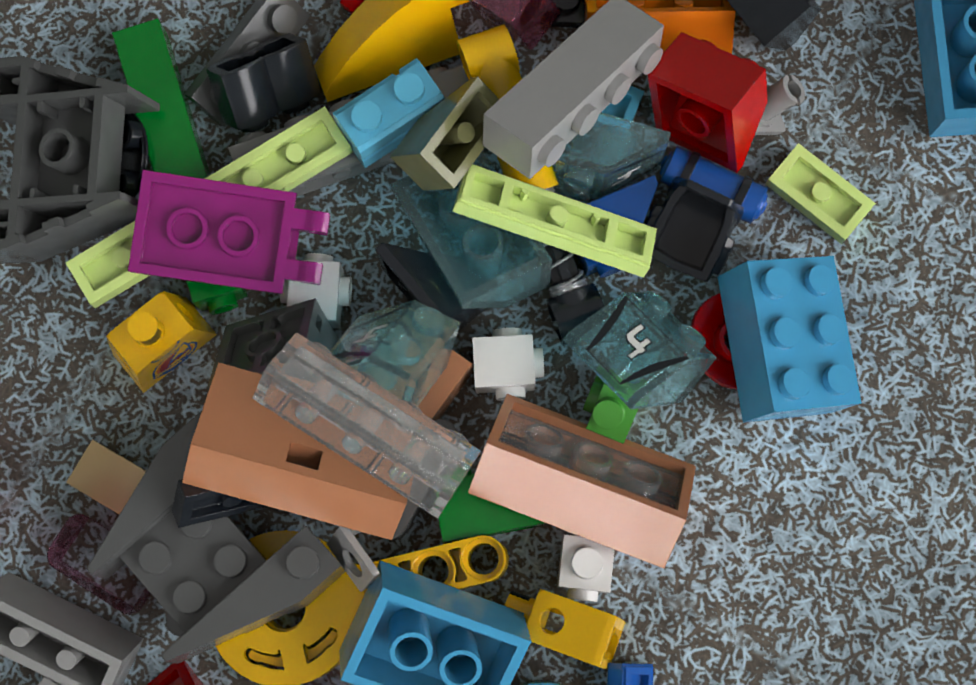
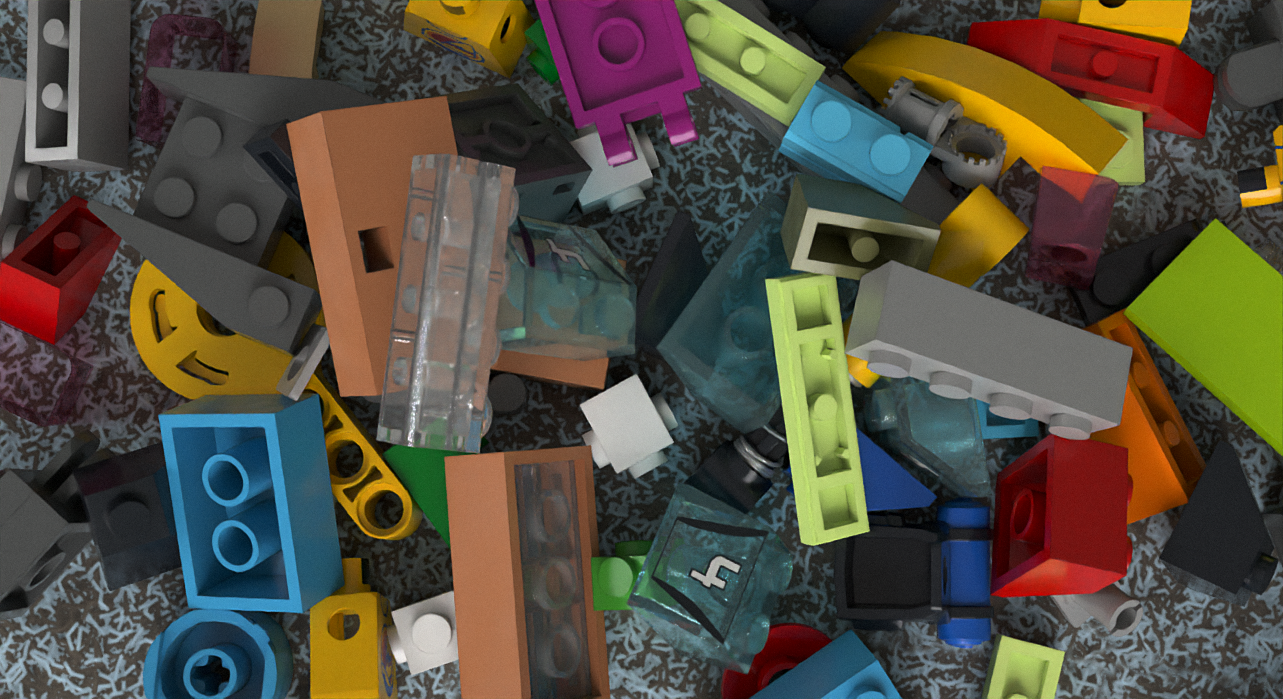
camera: 60 degrees right, 5 degrees up
(411, 45) = (948, 132): none -> light grey connector

